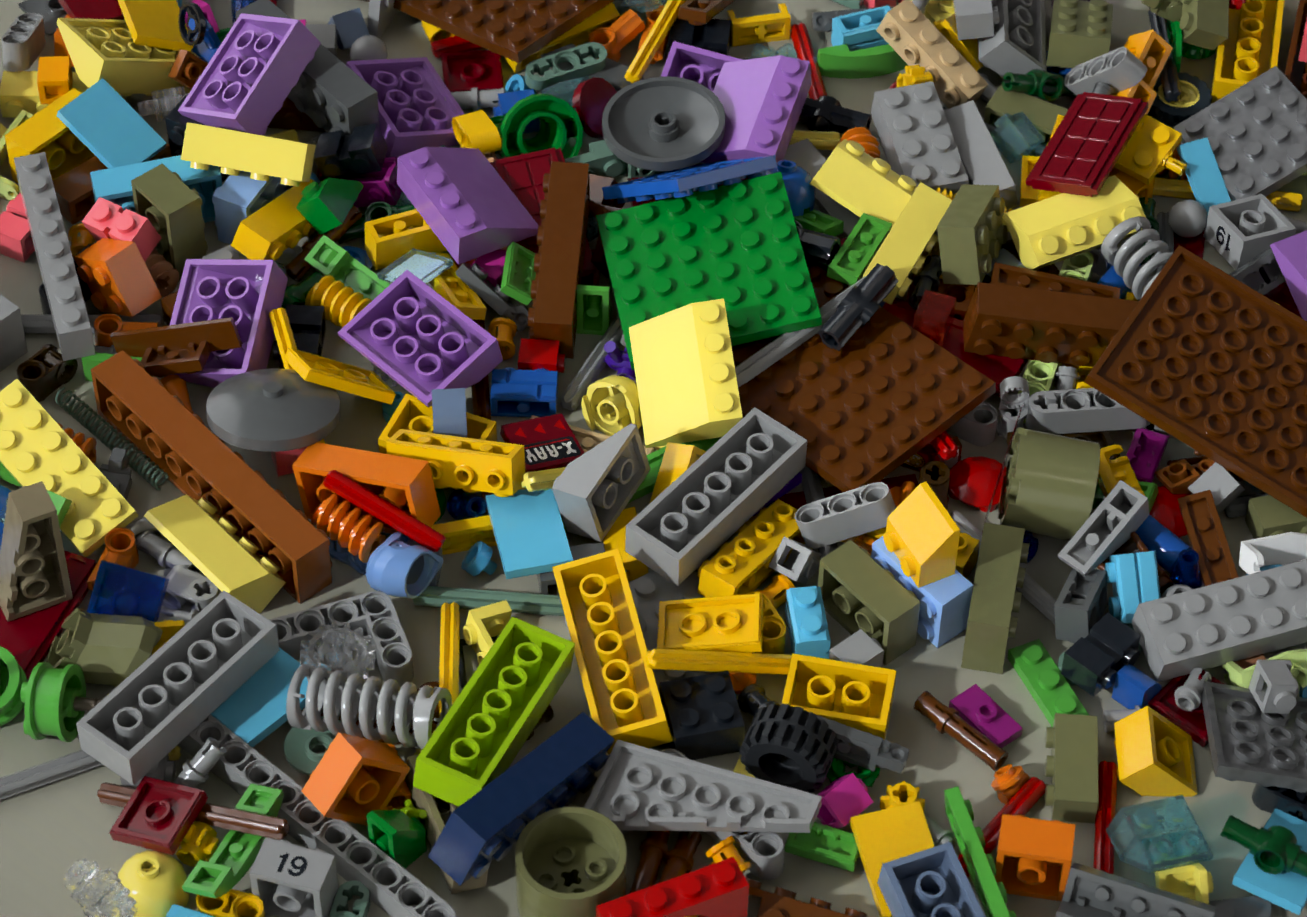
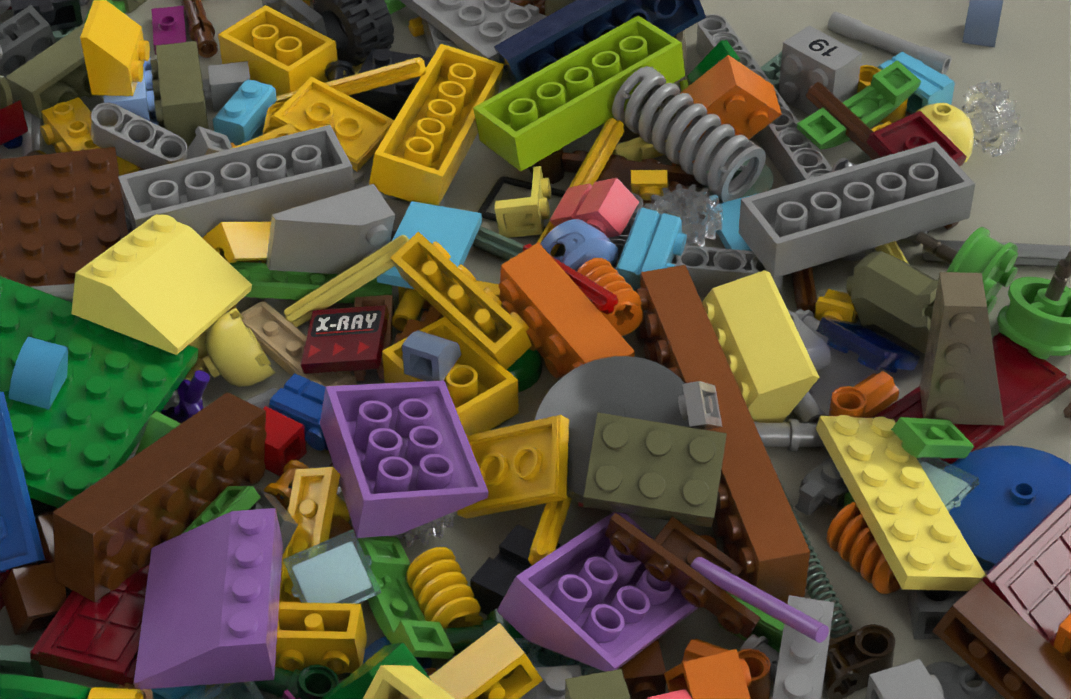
camera: 150 degrees left, 5 degrees down
(110, 315) = (761, 600): none -> medium lavender bar
(203, 384) = (700, 405): none -> light grey plate
(221, 363) = (654, 469): none -> olive brick
(338, 586) = (650, 245): none -> medium azure brick
(387, 668) = (648, 182): none -> yellow plate
(427, 617) = (604, 206): none -> coral piece
(479, 560) = (487, 269): dark azure tile -> none
(694, 252) = (39, 373): none -> dark azure brick

